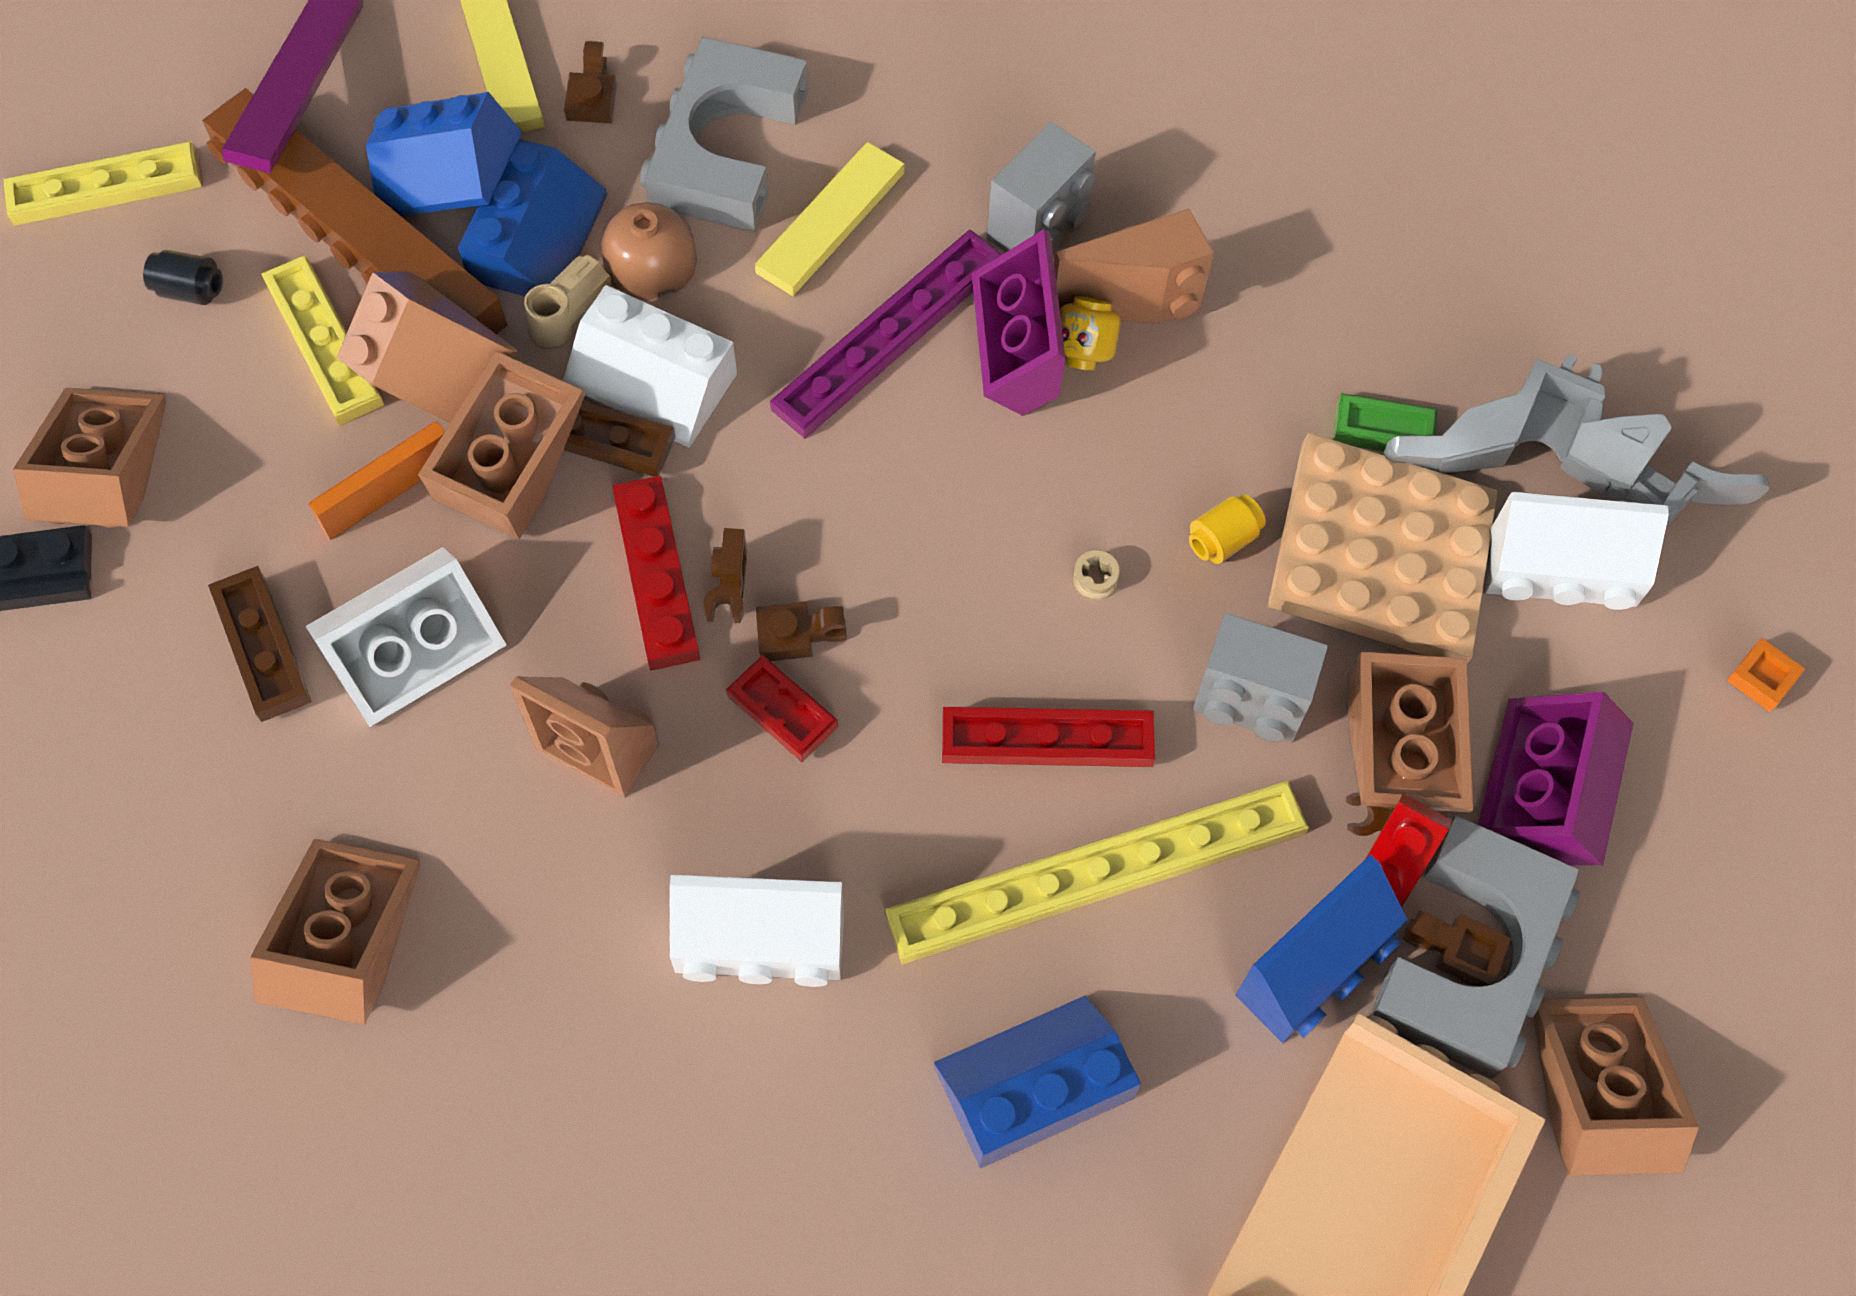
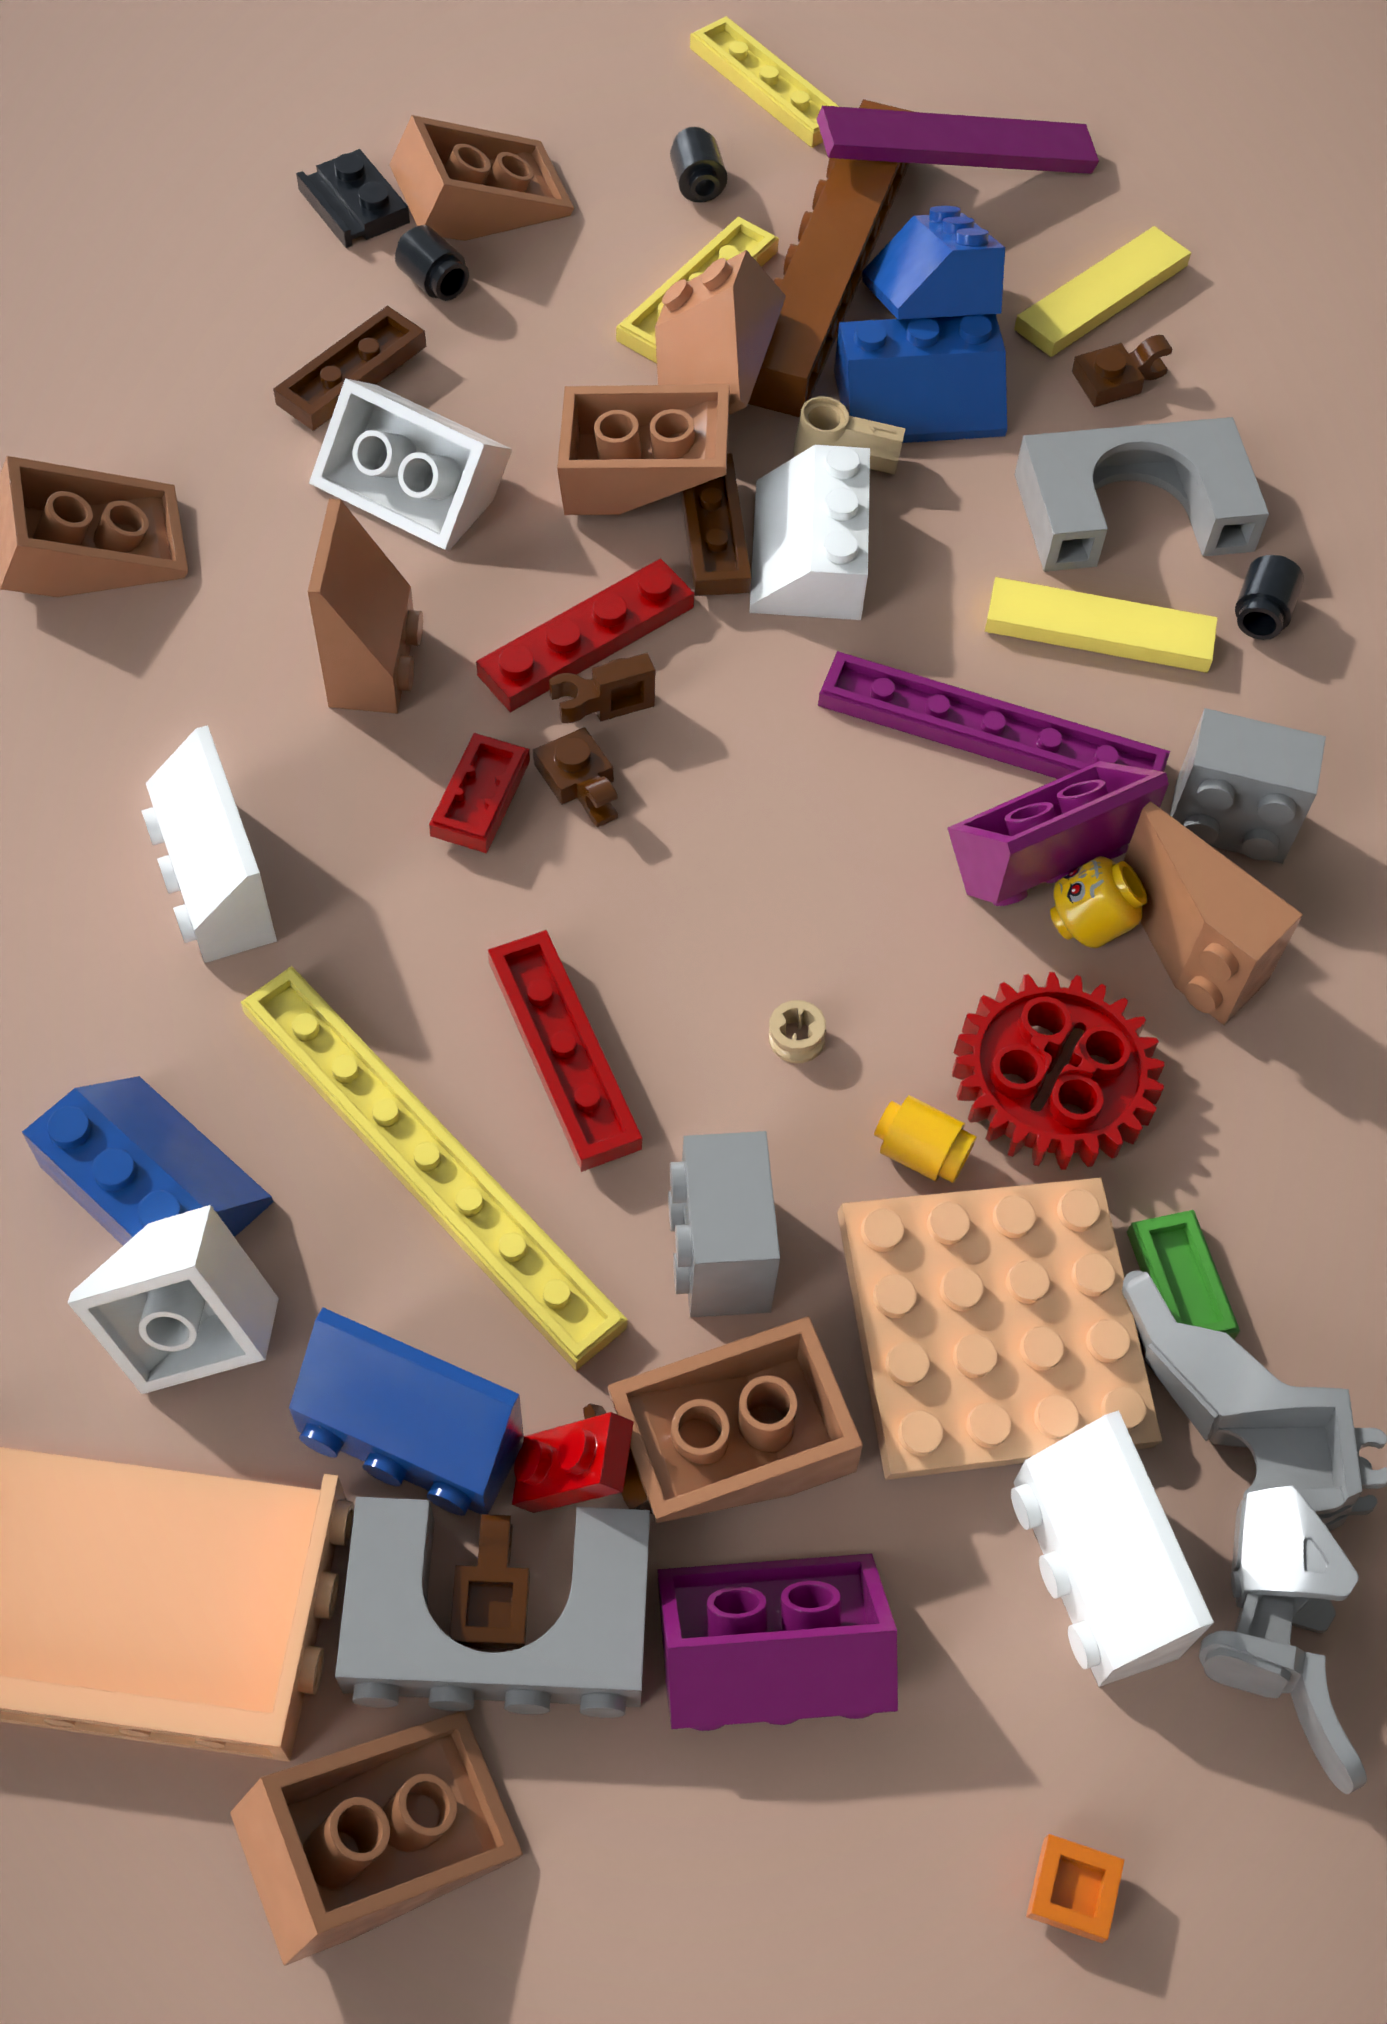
camera: 65 degrees right, 5 degrees down
(173, 530) = (432, 263): none -> black brick
(375, 483) = (540, 371): orange tile -> none
(648, 250) = (953, 484): nougat cylinder -> none
(867, 100) = (1268, 596): none -> black brick
(1180, 1078) = (178, 1303): none -> white slope
(1204, 422) = (1112, 1095): none -> red gear

